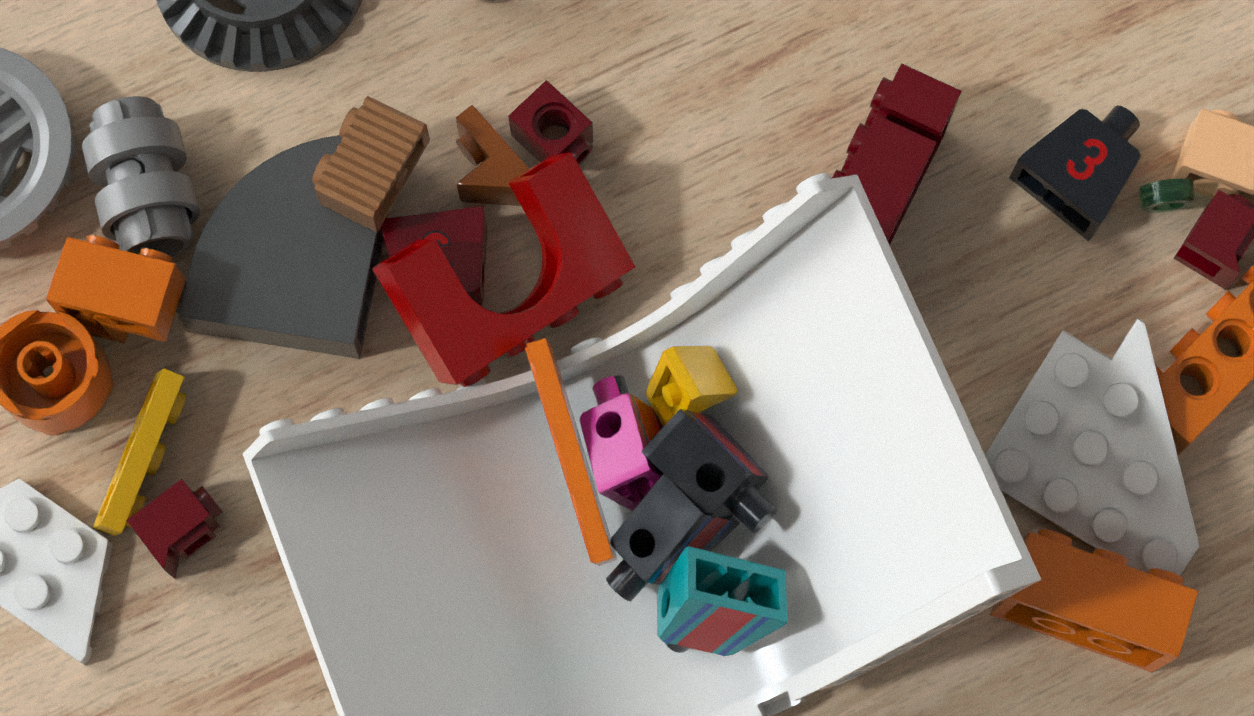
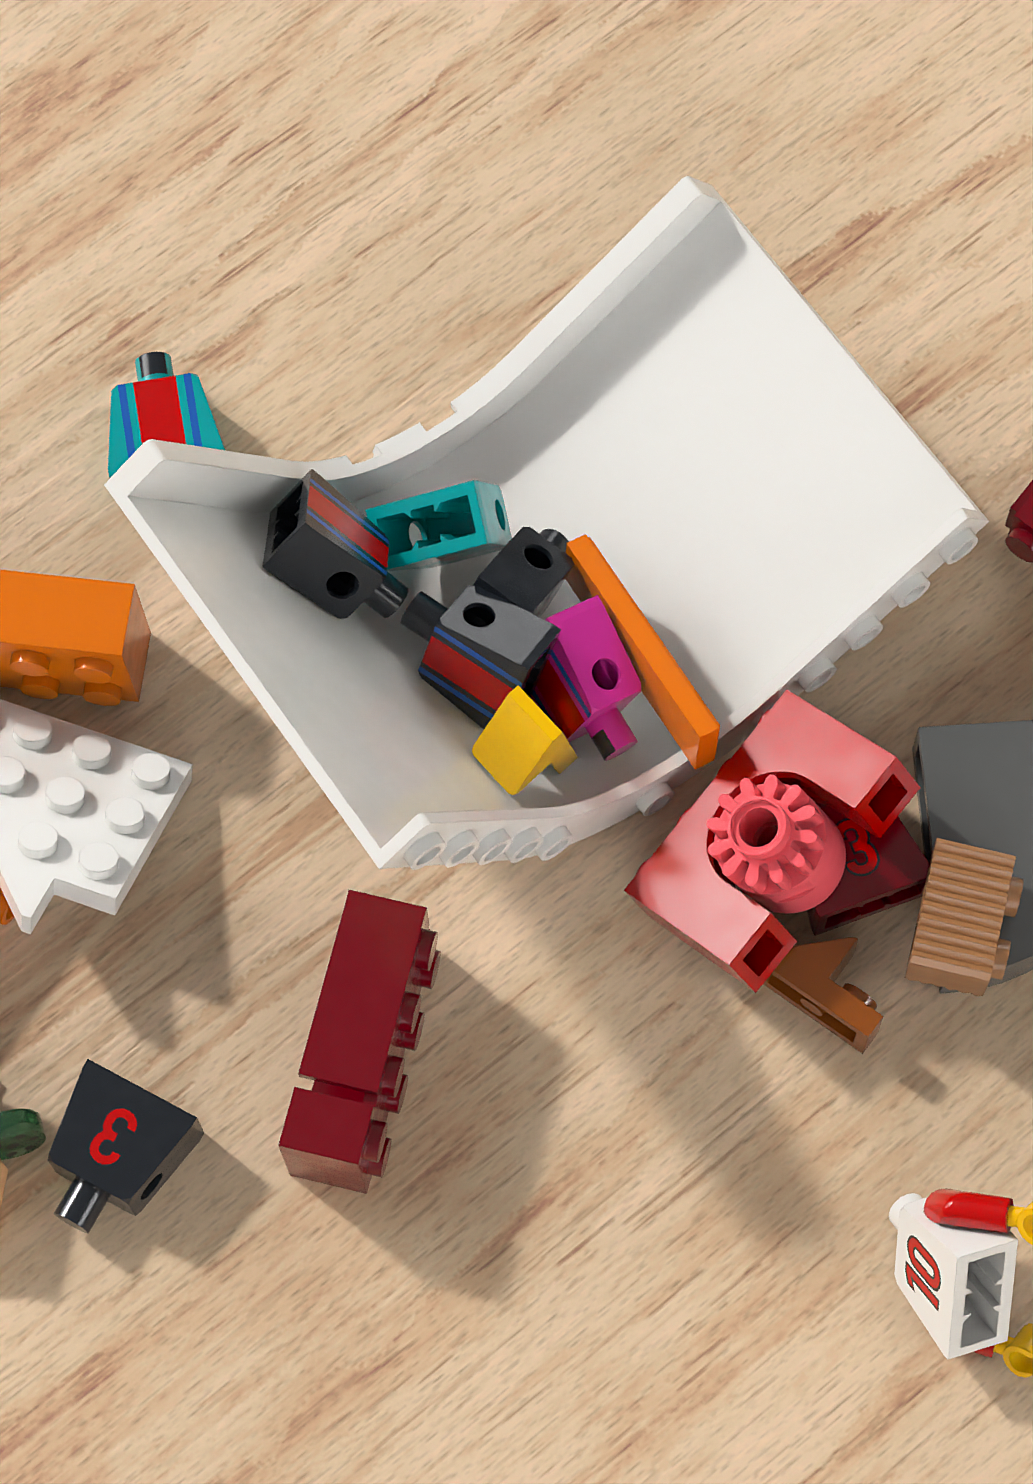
camera: 170 degrees right, 5 degrees down
(504, 247) = (778, 846): none -> coral gear
(548, 108) = (771, 1075): dark red brick -> none
(832, 573) = (330, 551): none -> black torso

